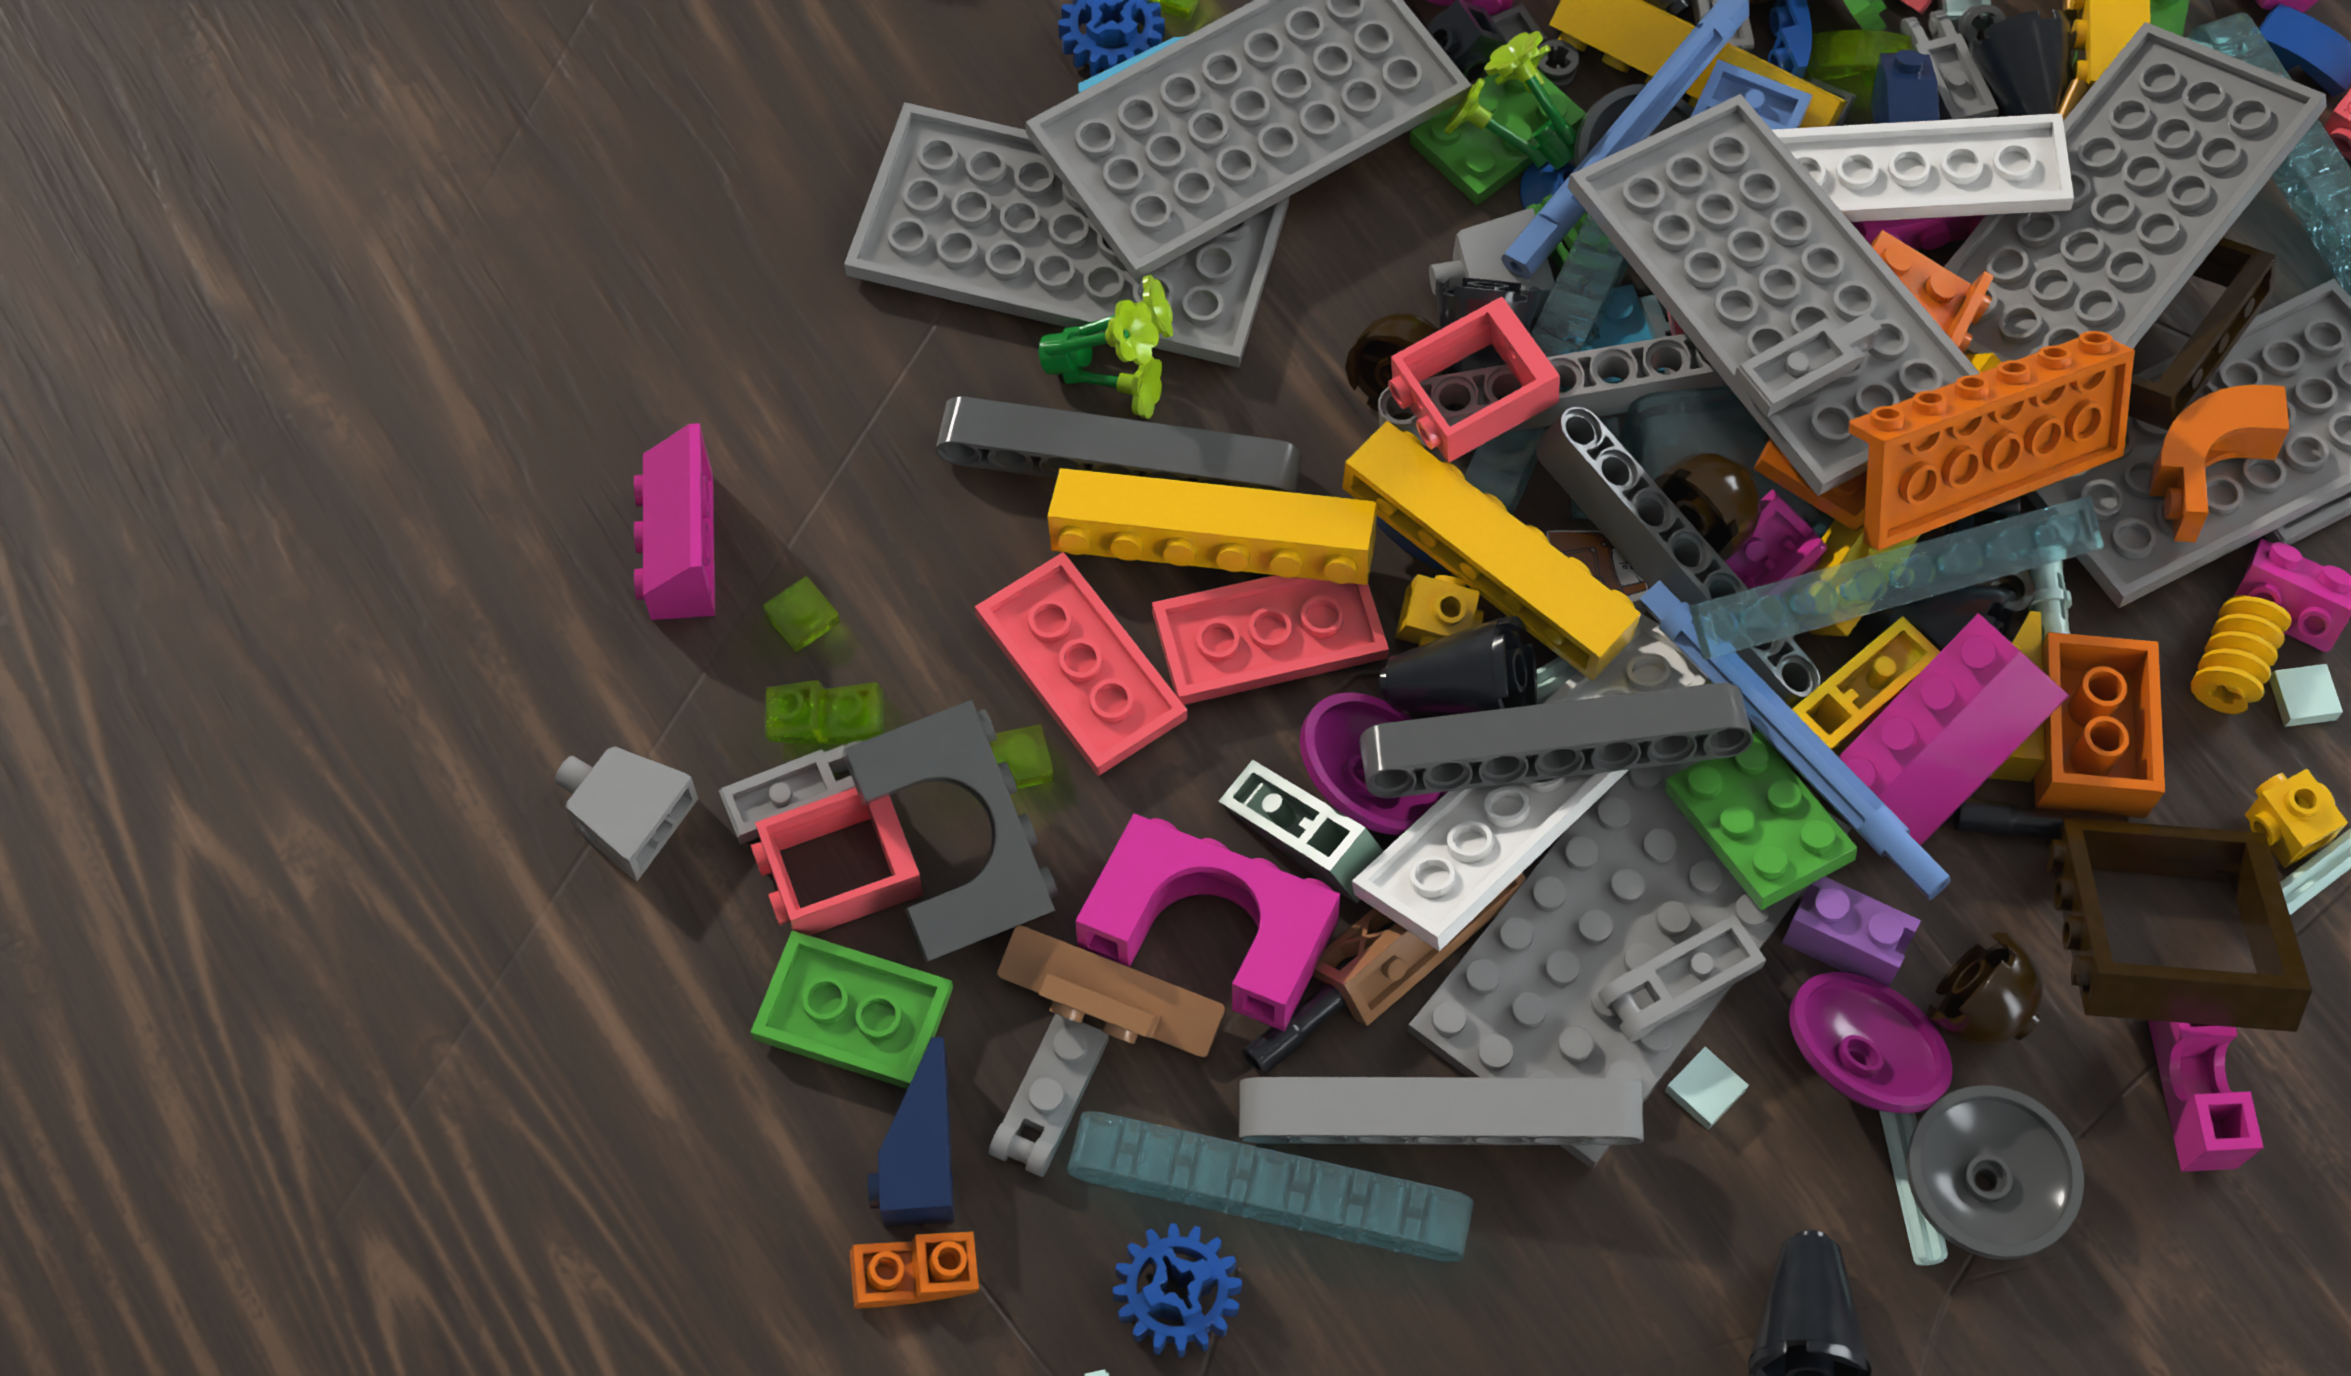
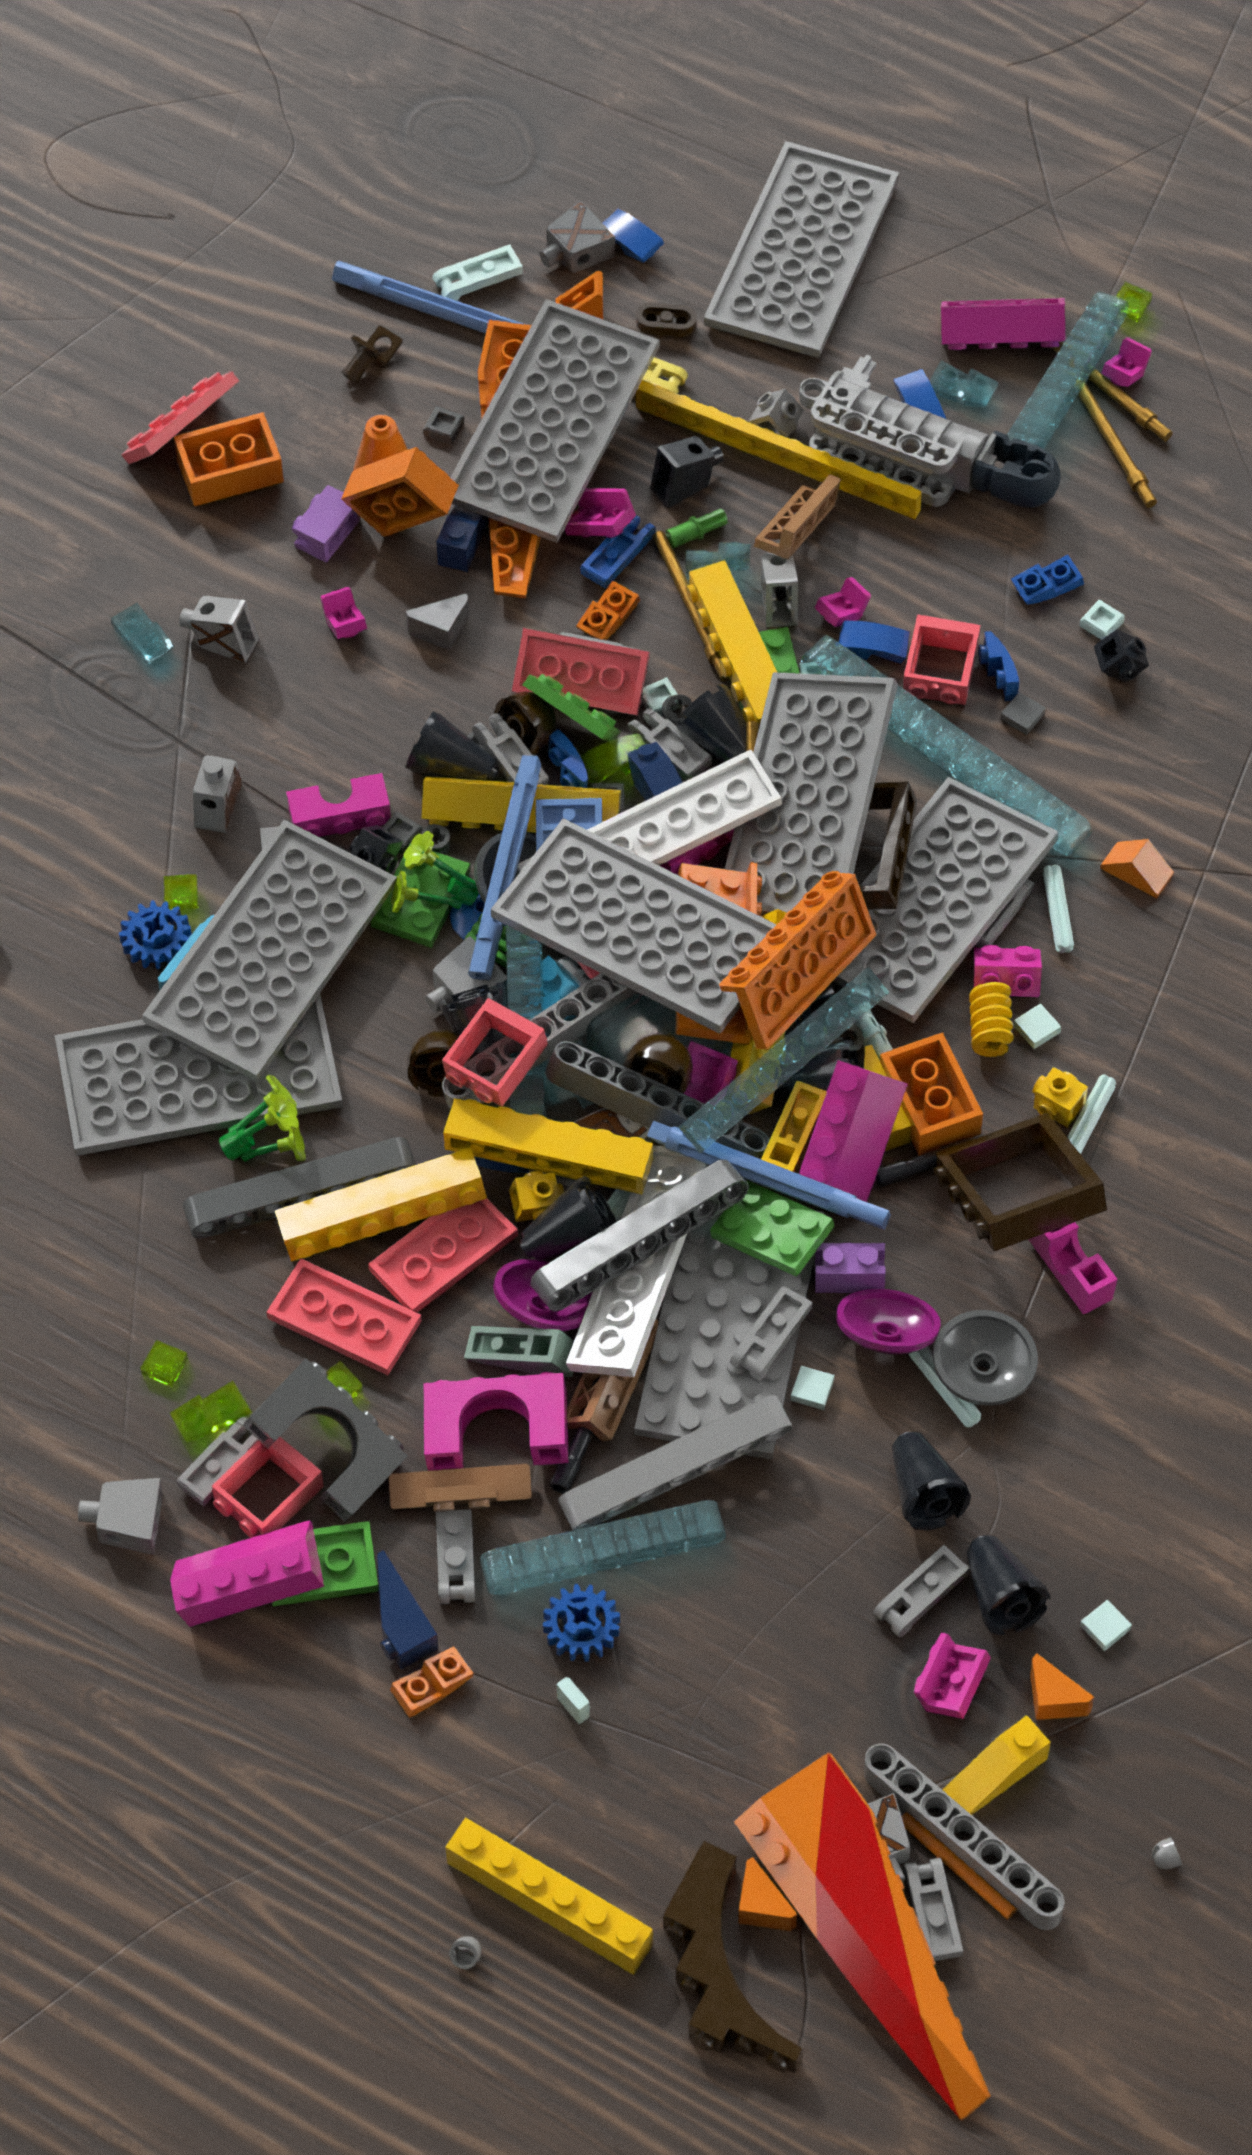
camera: 25 degrees left, 5 degrees down
(676, 528) = (66, 1345): dark pink slope -> none
(733, 975) = (246, 1574): none -> dark pink slope
(1806, 362) = (678, 961): light grey hinge -> none
(1990, 994) = (940, 1266): dark brown cylinder -> none
(2216, 427) = (919, 896): orange arch -> none

